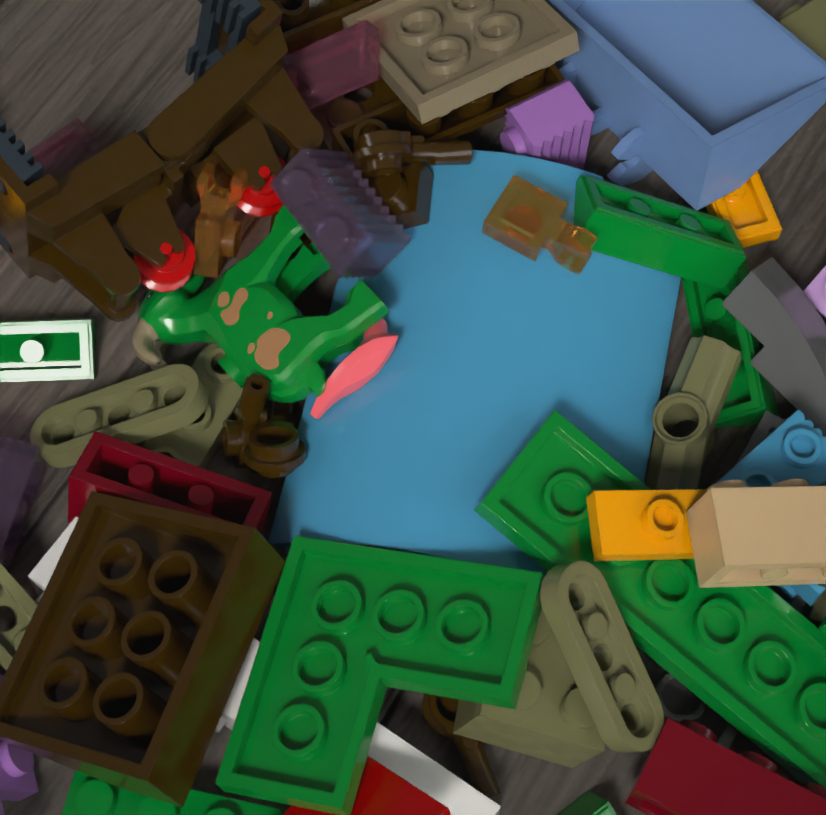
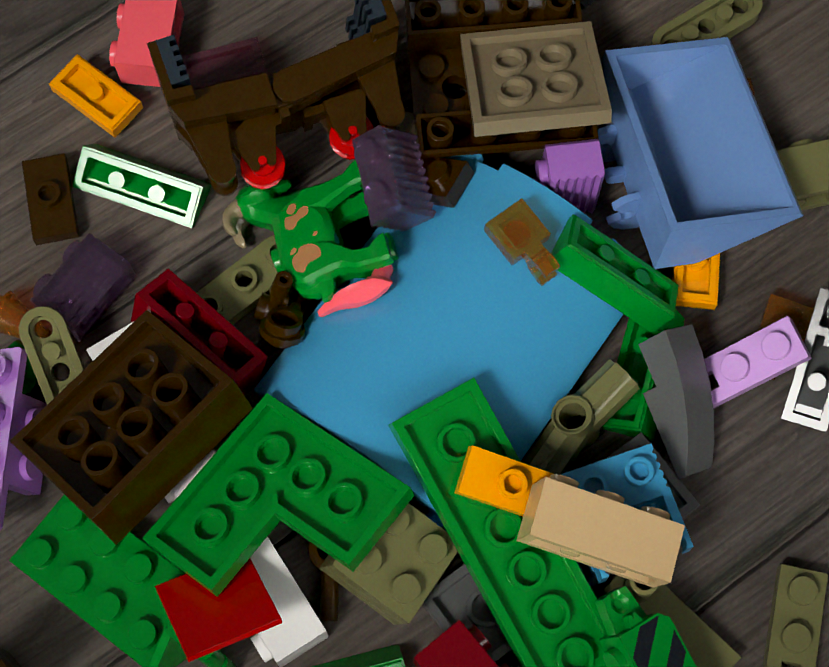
camera: 25 degrees right, 5 degrees up
(150, 402) = (218, 261): olive plate -> none
(216, 231) = (307, 157): clear orange plate -> none
(335, 64) = (434, 68): clear pink tile -> none
(387, 150) = (442, 147): dark brown plate -> none
(602, 657) = (439, 576): olive plate -> none

